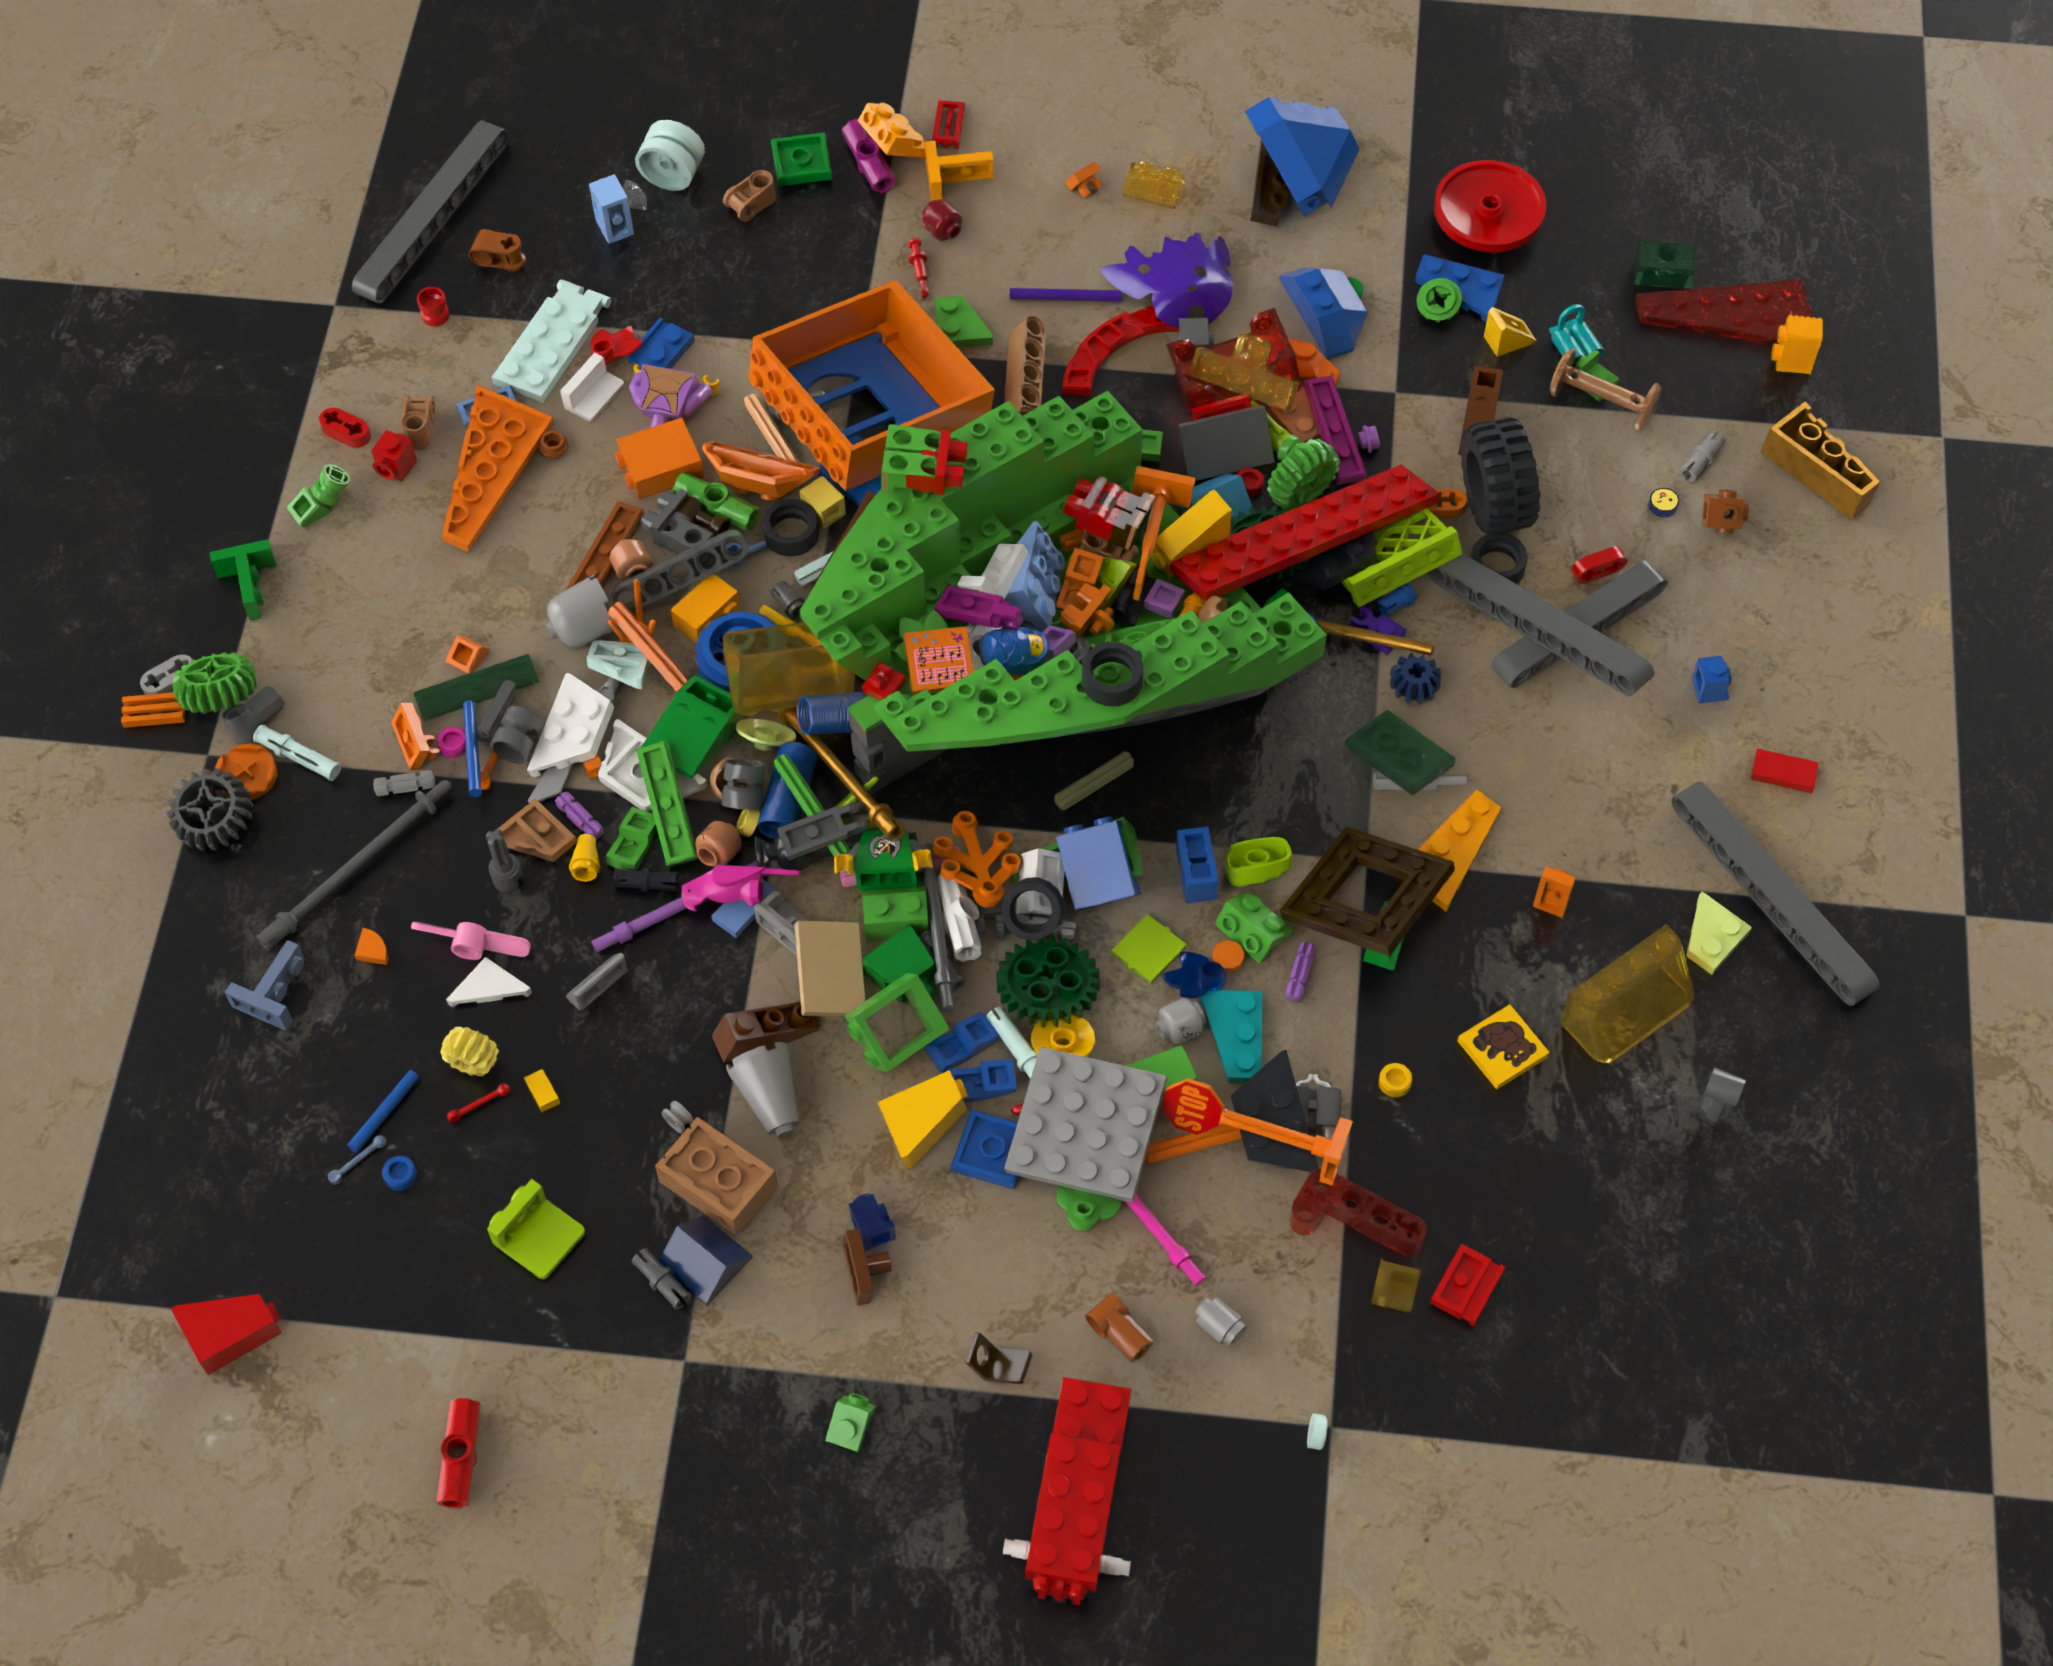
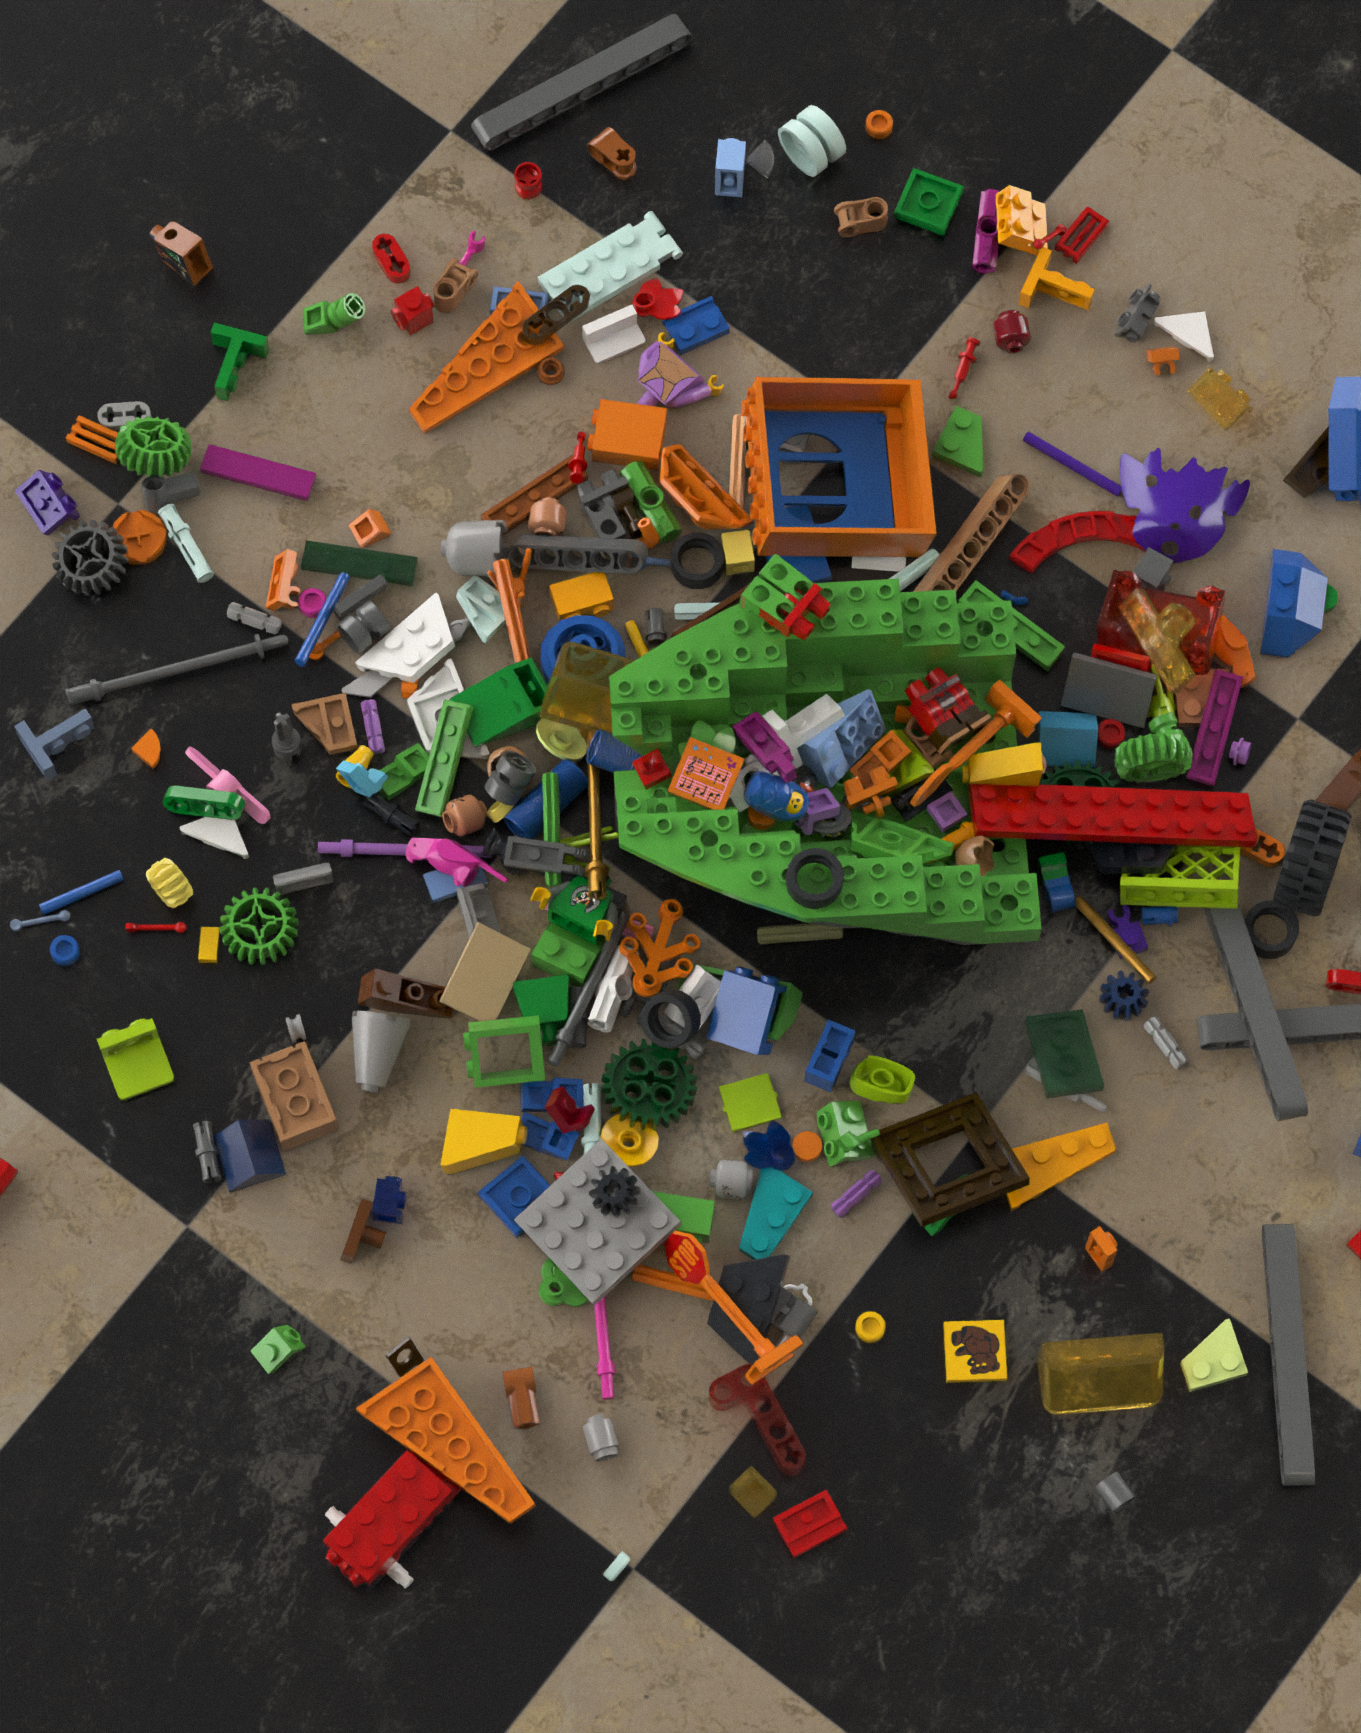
camera: 30 degrees right, 10 degrees up
(134, 785) = (47, 501): none -> bracket
(141, 511) = (182, 251): none -> dark orange torso
(329, 660) = (258, 472): none -> magenta tile
(416, 382) = (473, 247): none -> dark pink hand
(474, 947) = (187, 801): none -> green beam
(529, 405) = (535, 320): none -> dark brown beam
(590, 1029) = (247, 926): none -> bright green gear
(600, 860) = (360, 779): none -> medium azure bracket
(629, 502) = (578, 463): none -> red piece
(717, 124) = (879, 124): none -> orange tile
(732, 522) = (649, 533): none -> orange arm
(921, 139) = (1059, 230): none -> red hinge
(989, 1044) = (566, 1113): none -> dark red bracket
(1038, 157) = (1141, 304): none -> dark grey hinge
(1068, 1396) = (438, 1427): none -> orange wing
(1091, 148) = (1189, 330): none -> white tile
(1097, 1071) = (623, 1197): none -> black gear
(1268, 924) = (849, 1142): none -> bright green hand
(1477, 698) = (1166, 1042): none -> light grey axle

